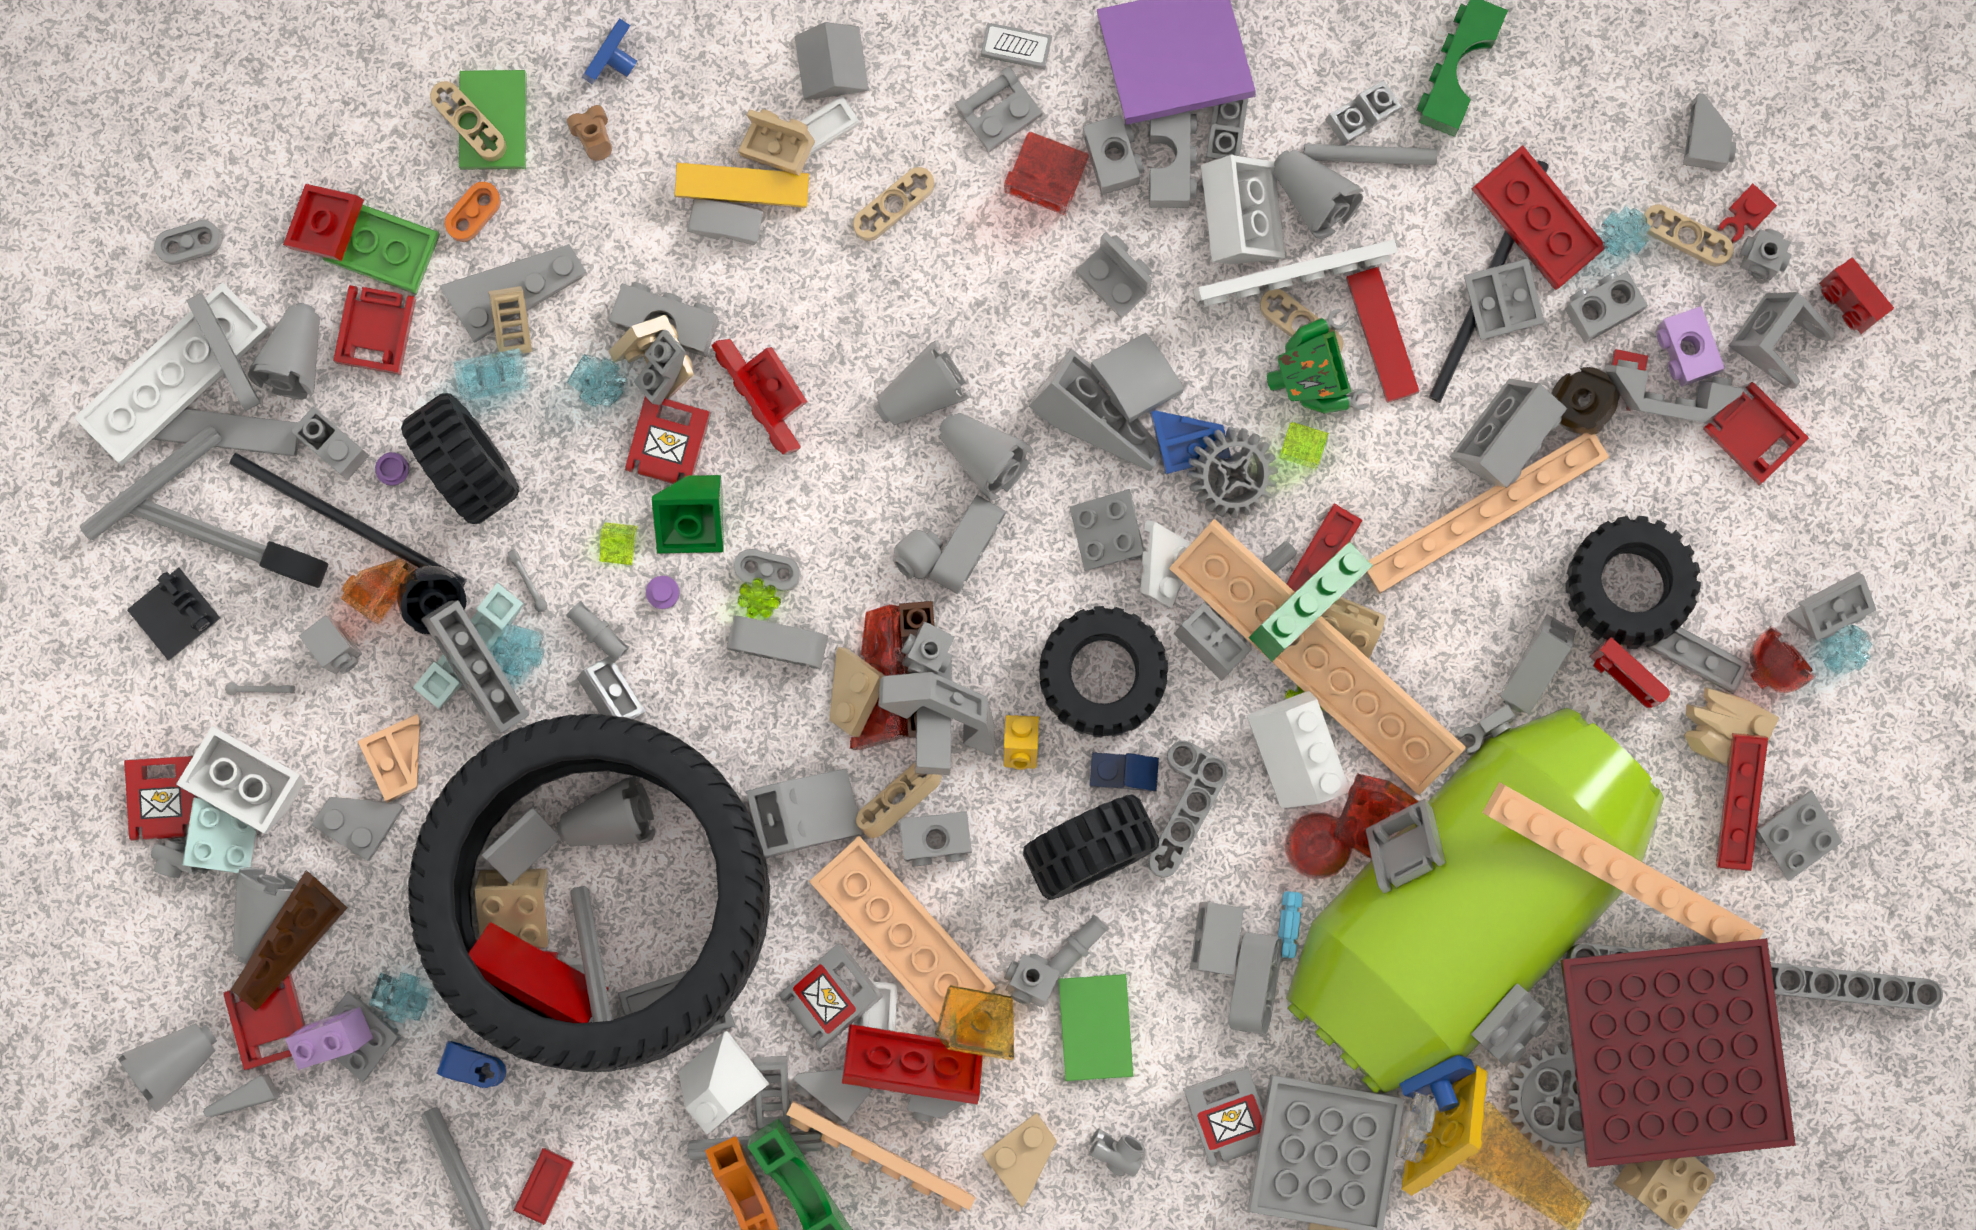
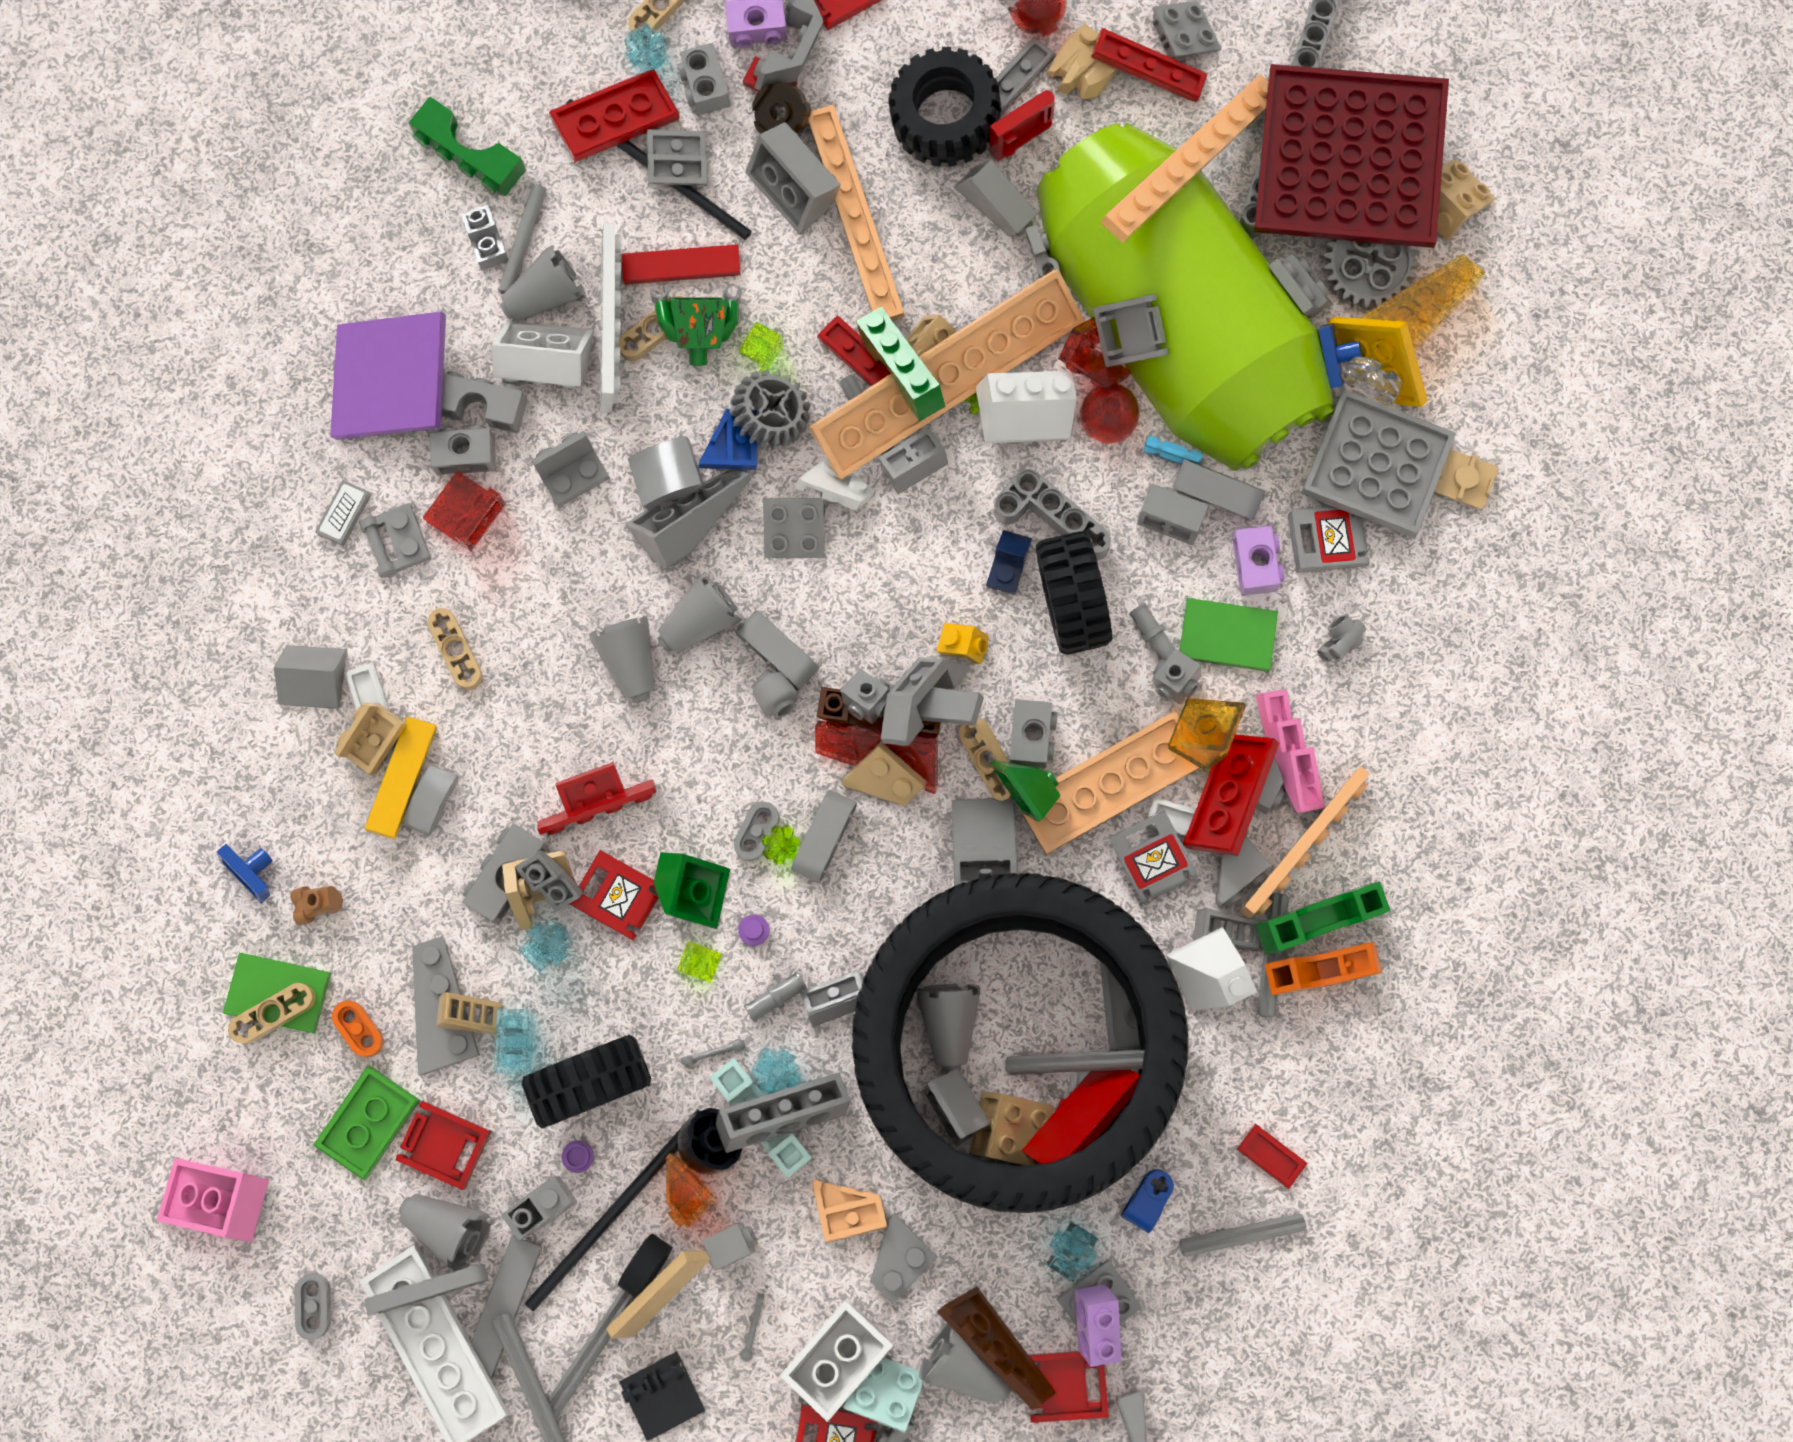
camera: 75 degrees left, 5 degrees down
(266, 584) = (658, 1293): none -> tan tile
(270, 114) = (213, 1200): none -> bright pink slope
(323, 222) = (329, 1170): red plate -> none
(869, 845) = (1029, 787): none -> green slope
(971, 1123) = (1294, 760): none -> bright pink slope
(1022, 1156) = (1329, 722): tan wing -> none
(1112, 626) = (909, 518): black tyre -> none
(1163, 1042) = (1251, 577): none -> lavender brick
(1227, 129) = (467, 352): light grey slope -> none

